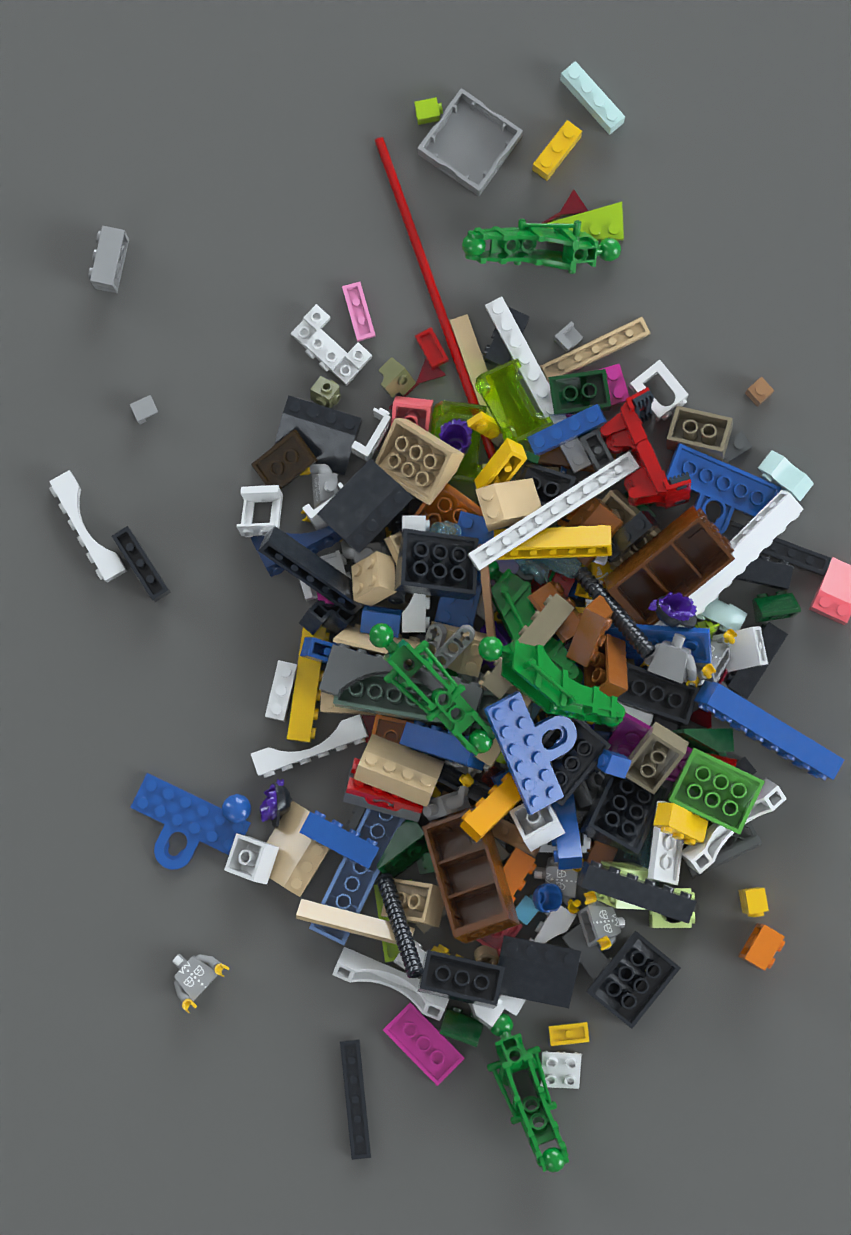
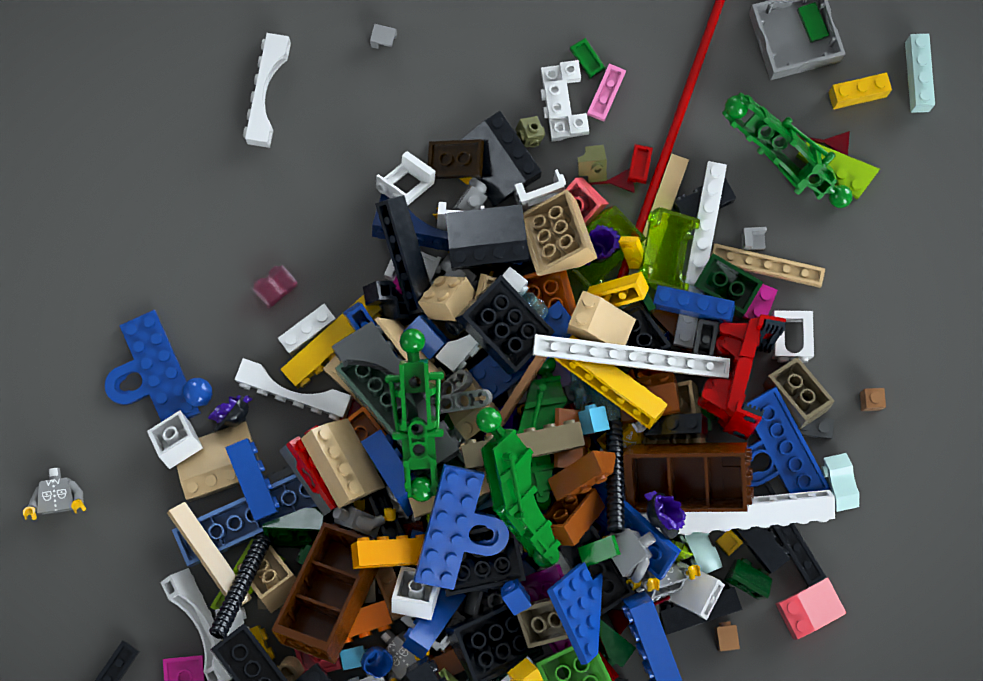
camera: 35 degrees right, 5 degrees down
(141, 564) = (282, 148): black brick -> none
(226, 677) = (274, 286): none -> clear pink brick
(320, 295) = (587, 58): none -> green tile
(475, 122) = (813, 22): none -> green tile
(563, 582) = (593, 419): none -> medium azure brick
(648, 678) = (599, 551): none -> green tile
(667, 732) = (579, 608): none -> blue wing
(737, 591) = (729, 542): none -> yellow tile
(792, 664) = (726, 636): none -> medium nougat brick

